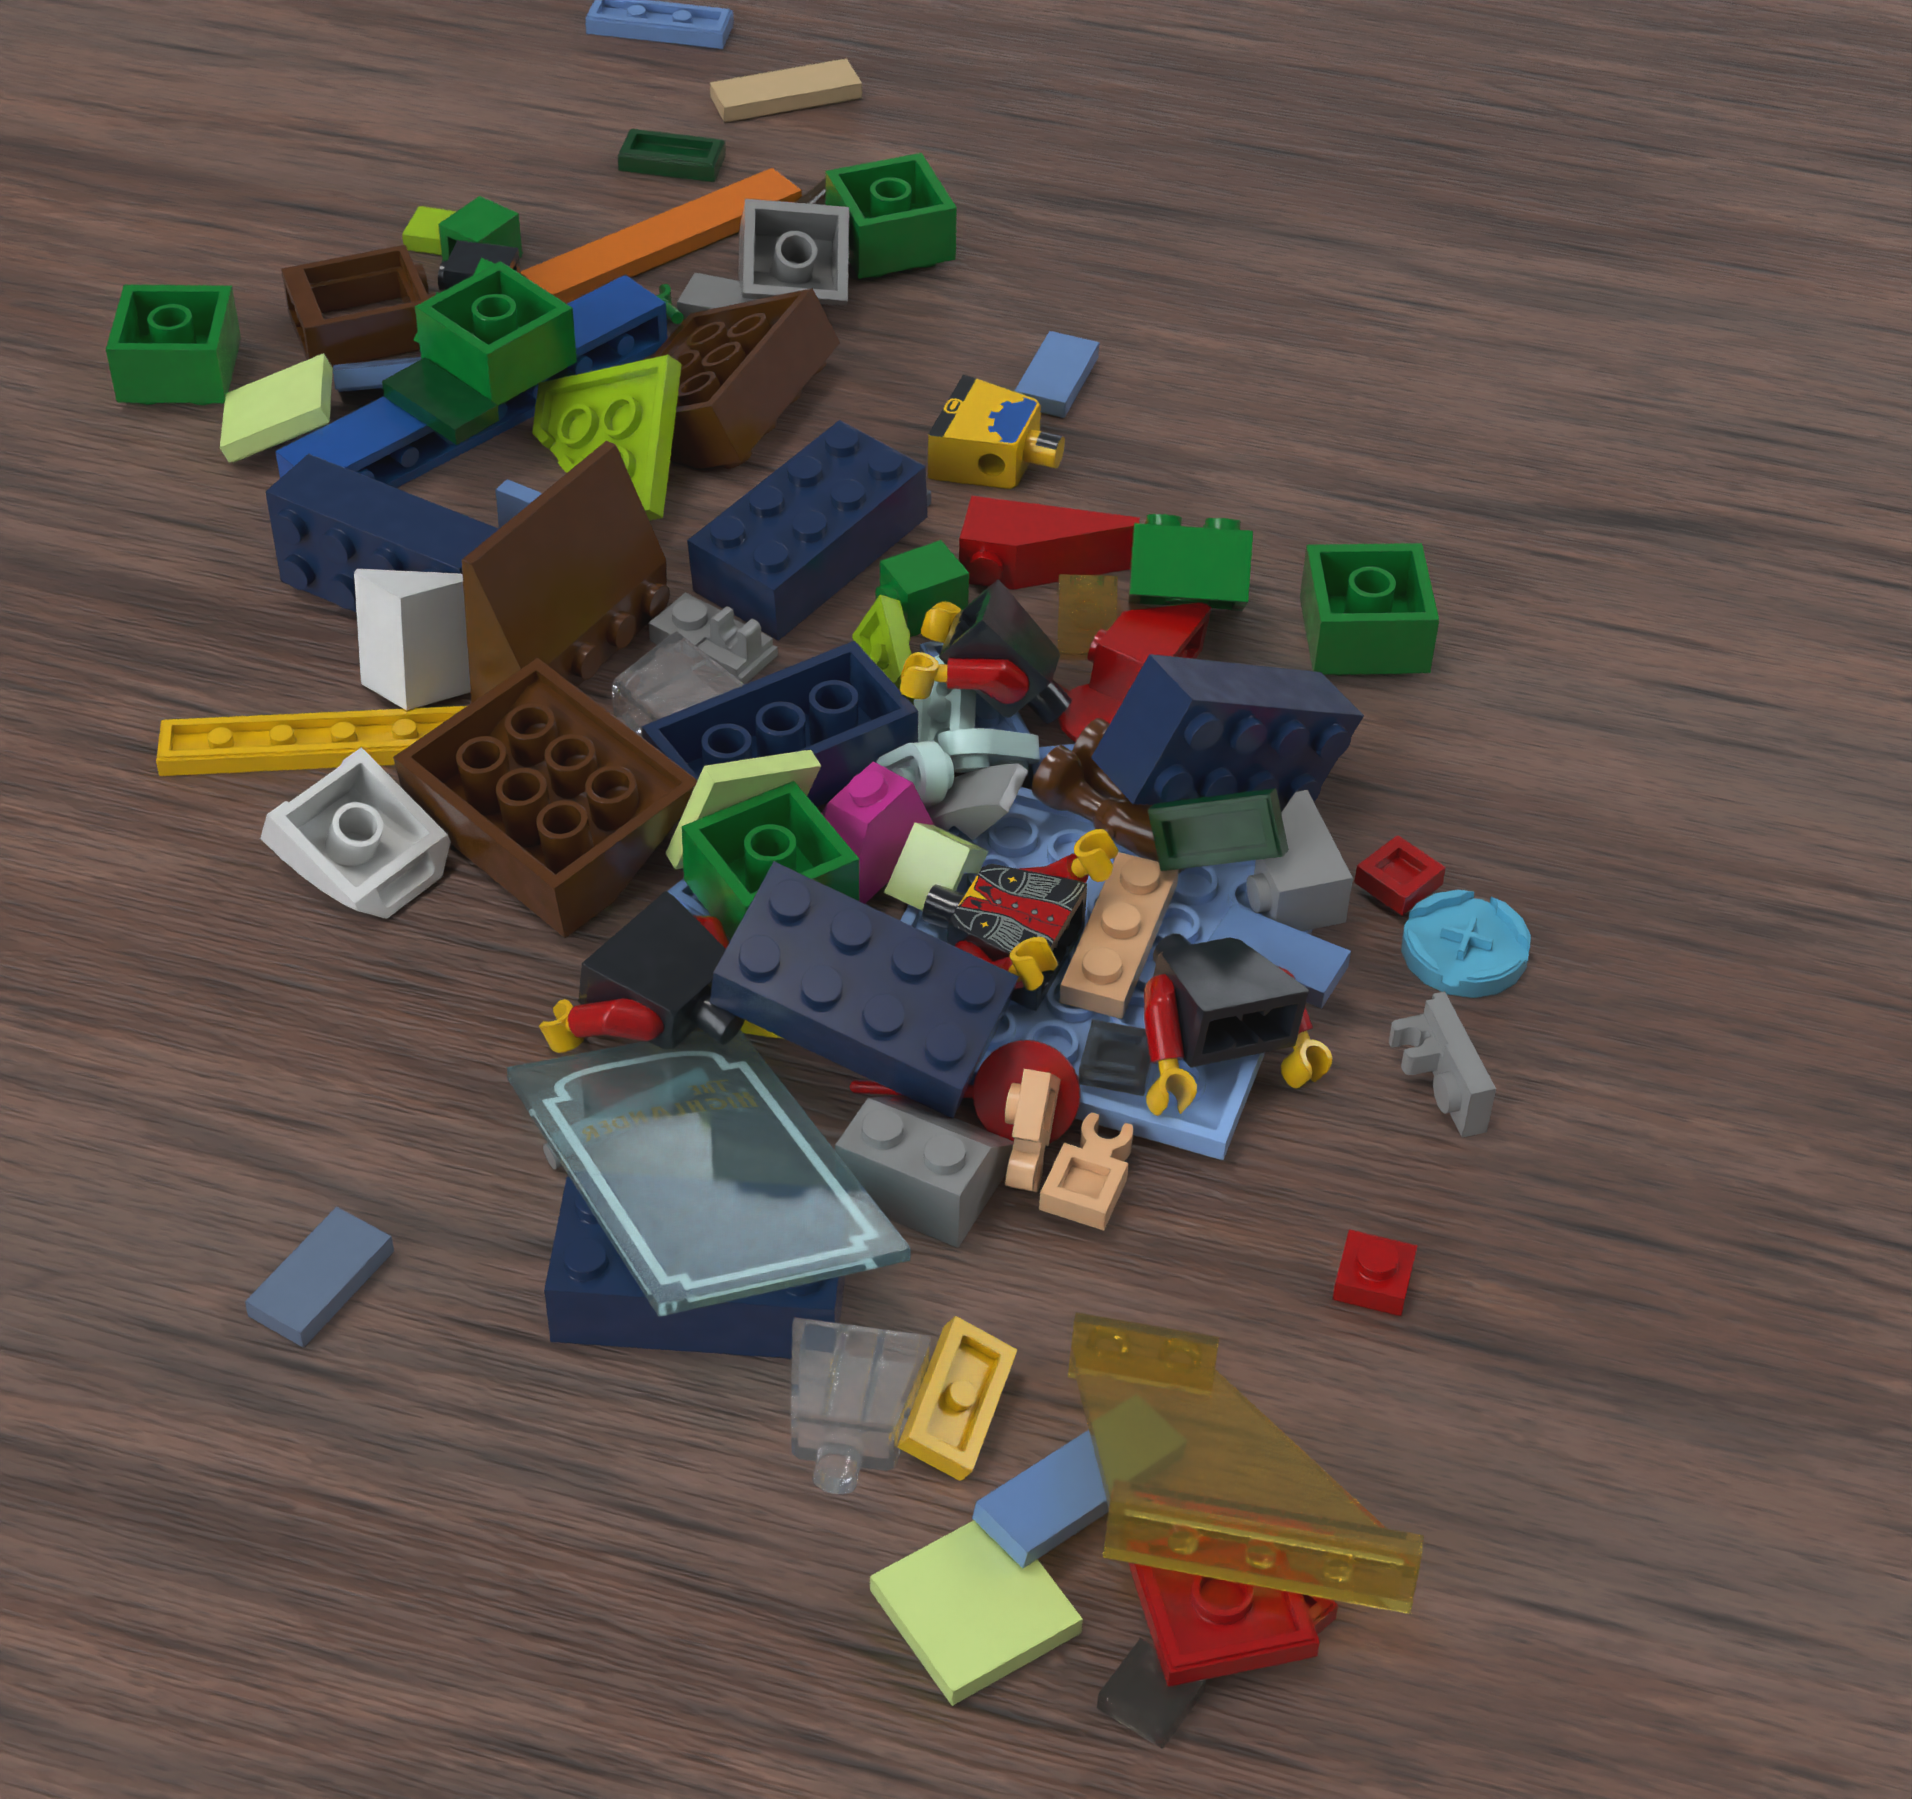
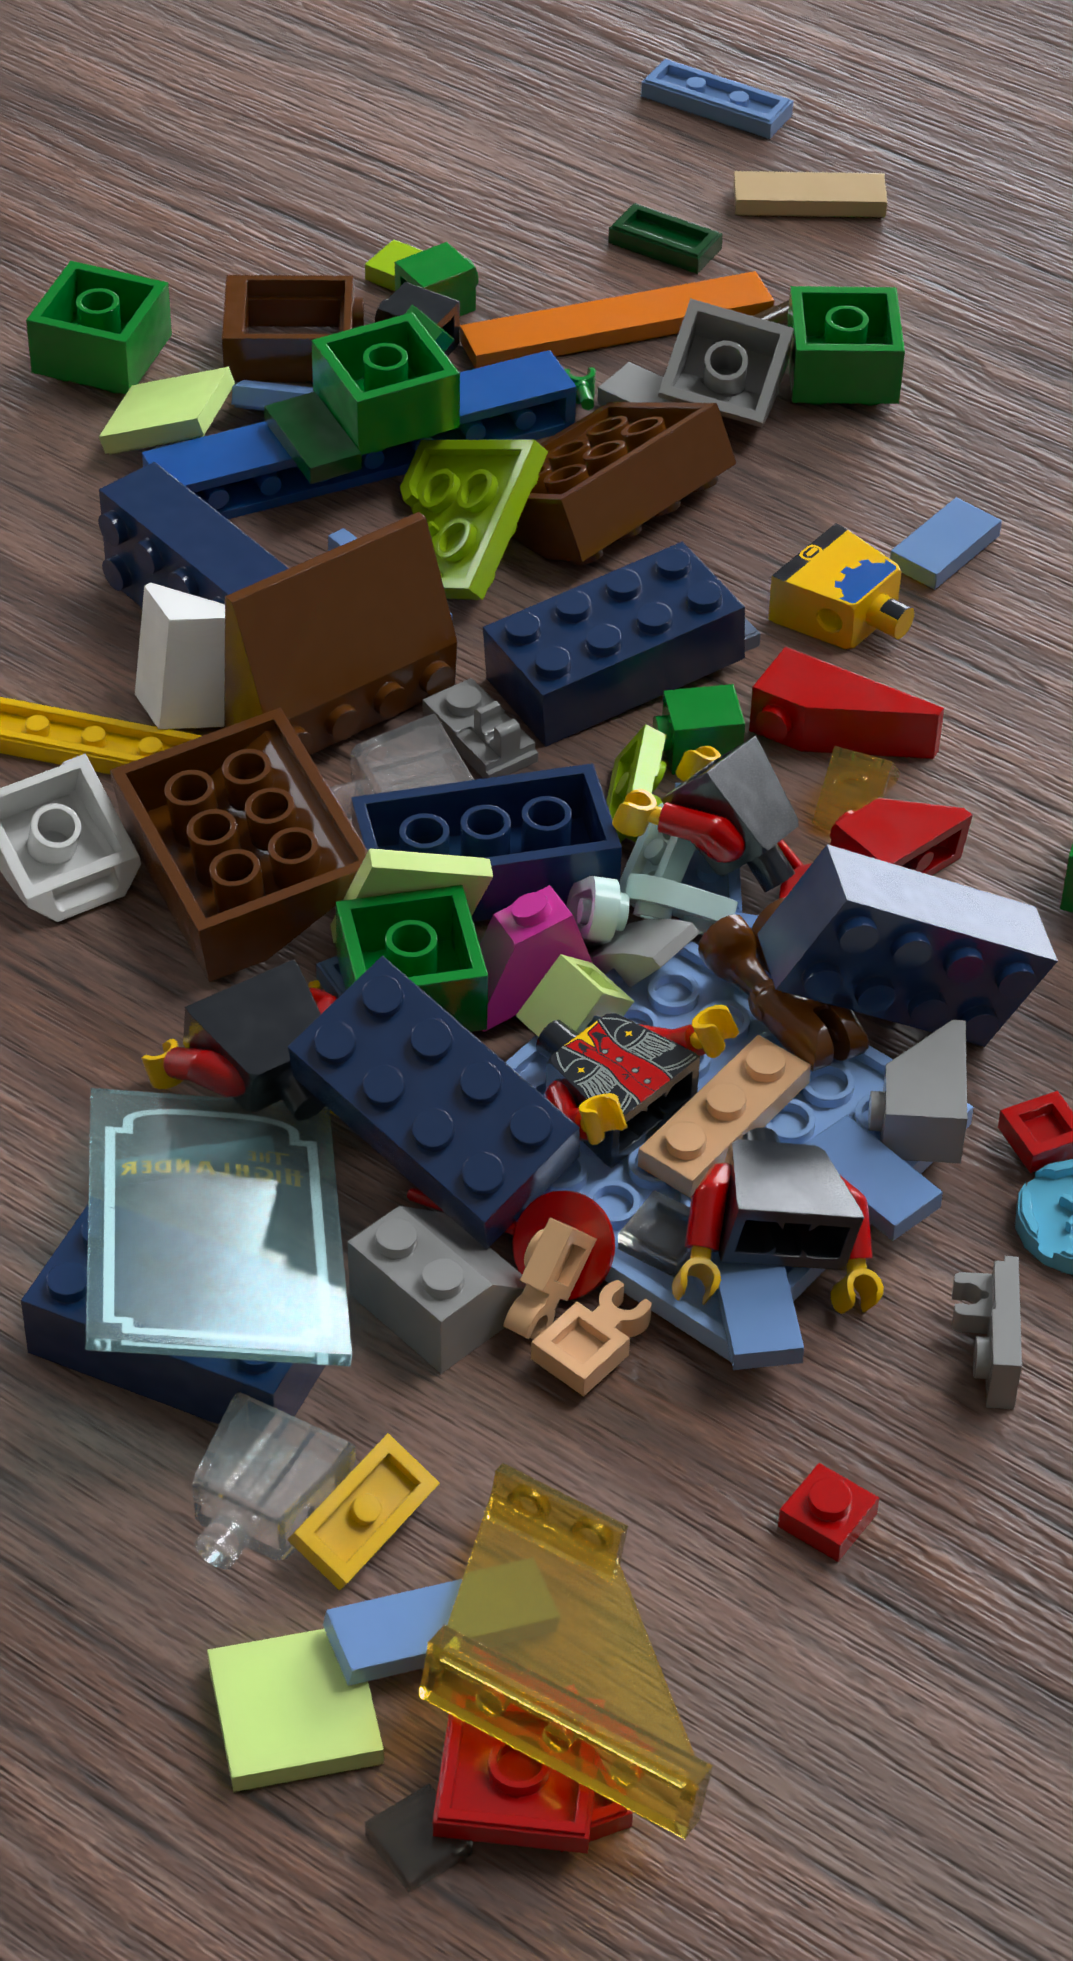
camera: 20 degrees right, 0 degrees up
(1190, 563) = (965, 768): green brick -> none
(1218, 829) = (849, 1036): dark green tile -> none
(1240, 1109) = (758, 1315): none -> medium blue tile

